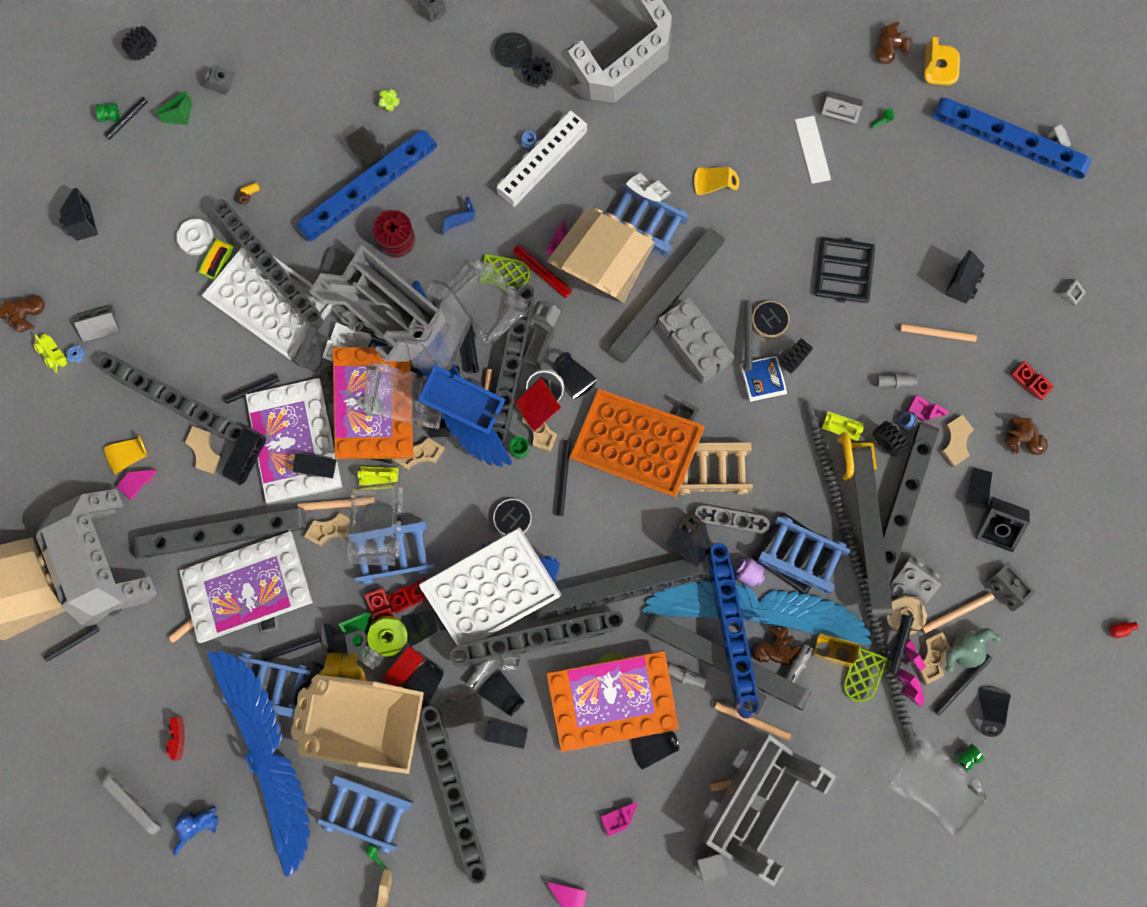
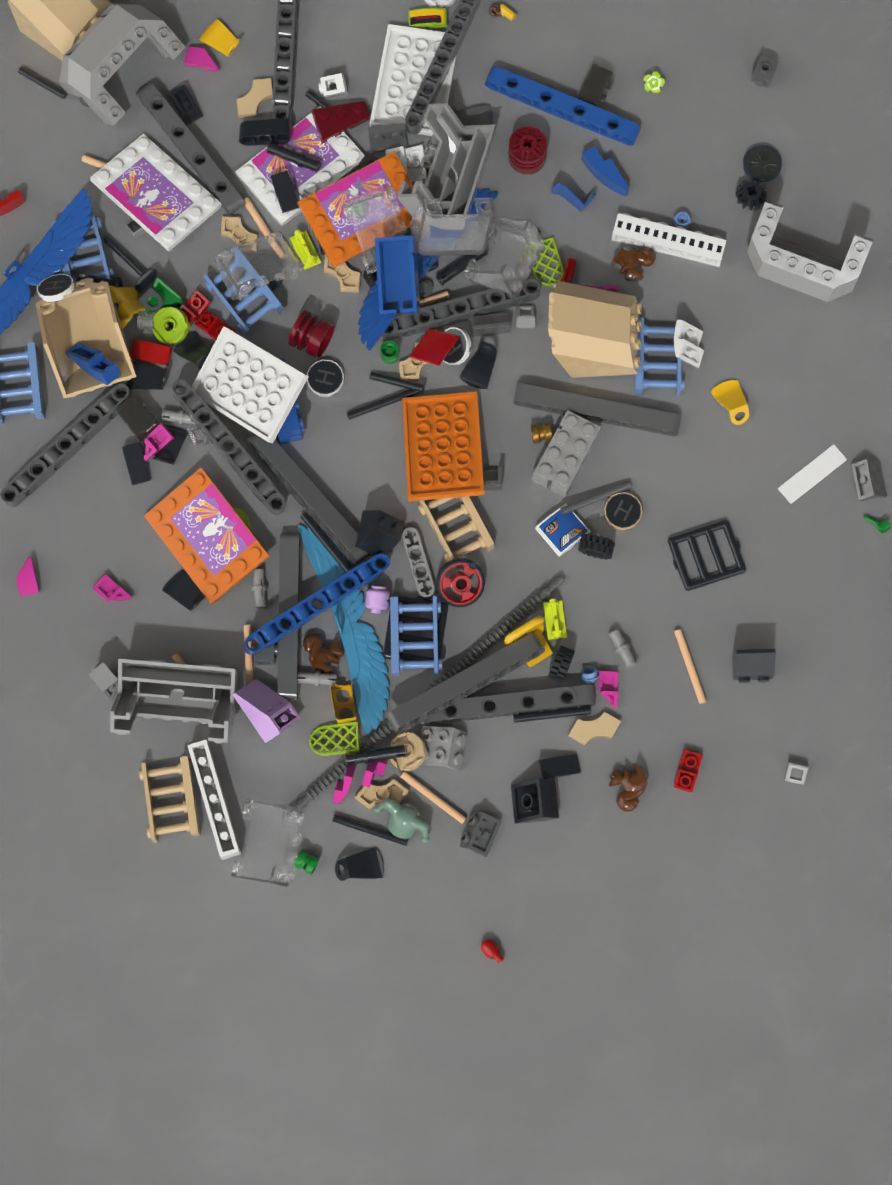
camera: 65 degrees right, 0 degrees up
(172, 517) = (185, 104): none -> black slope
(232, 365) = (340, 82): none -> white brick
(269, 383) = (336, 119): none -> dark red wing
(287, 439) = (301, 160): none -> black pin
(293, 728) = (55, 287): none -> tile
(387, 727) = (94, 363): none -> blue slope
(449, 179) = (605, 171): none -> blue slope
(467, 508) = (310, 333): none -> dark red wheel
(494, 703) = (157, 441): none -> dark pink slope
(542, 199) = (630, 258): none -> reddish brown animal
(550, 455) = (397, 382): none -> black bar
(665, 352) = (541, 433): none -> pearl gold wheel
(673, 593) = (325, 542): none -> black bar
(771, 490) = (443, 582): none -> red wheel
(813, 725) = (266, 709): none -> lavender slope
(866, 844) = (188, 806): none -> tan fence
(874, 816) = (214, 799): none -> white brick
(928, 472) = (552, 714): none -> black bar

